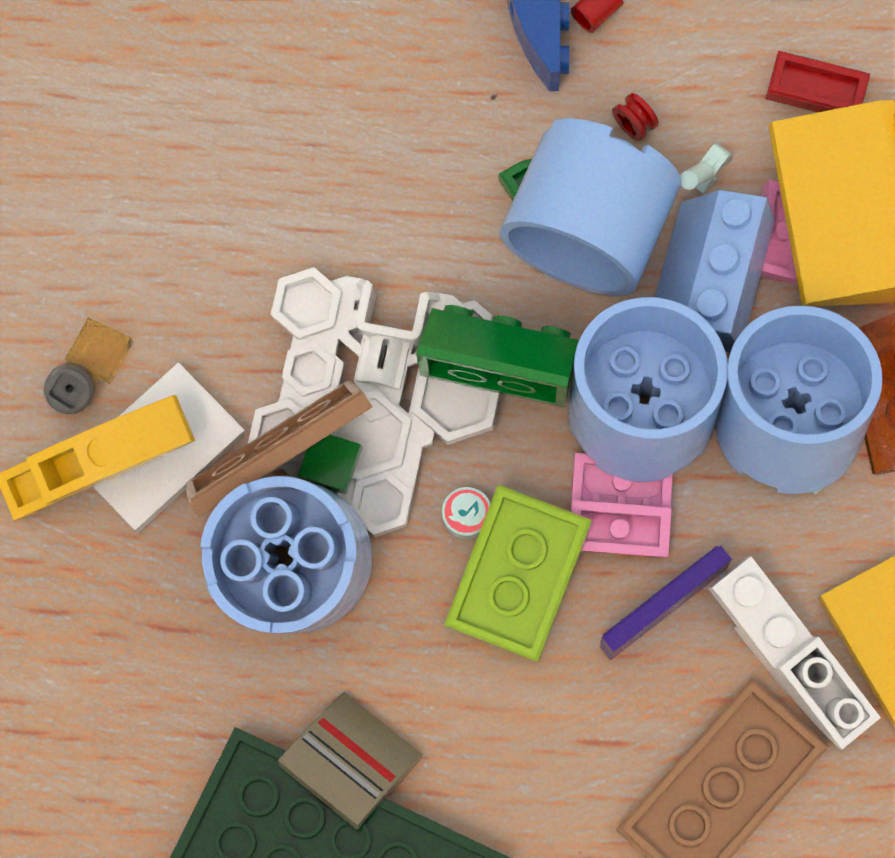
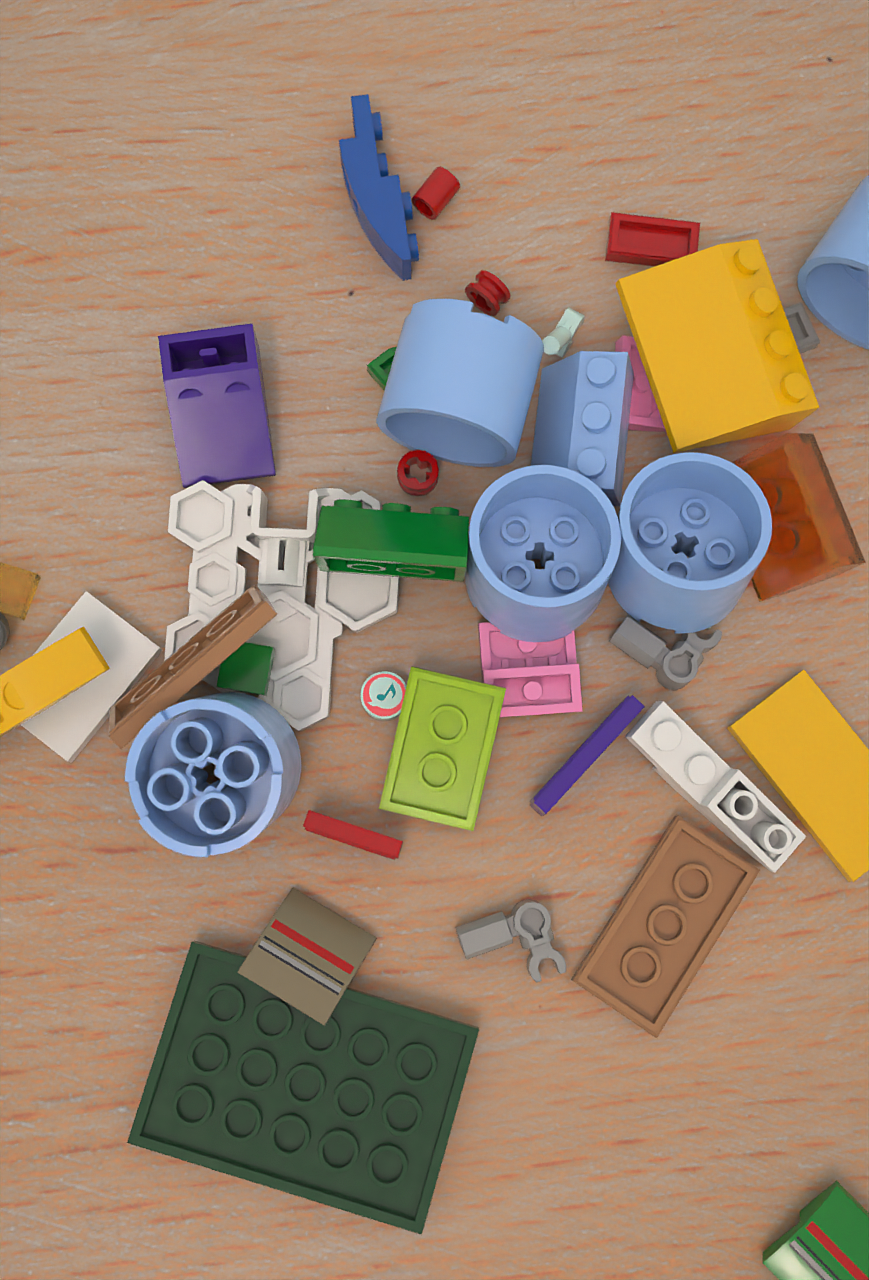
camera: 15 degrees left, 5 degrees up
(340, 193) = (217, 404): none -> dark purple slope
(414, 647) = (352, 835): none -> red tile
(543, 280) = (423, 460): none -> red bush
(544, 766) = (528, 921): none -> light grey bar
(770, 526) = (674, 666): none -> light grey bar

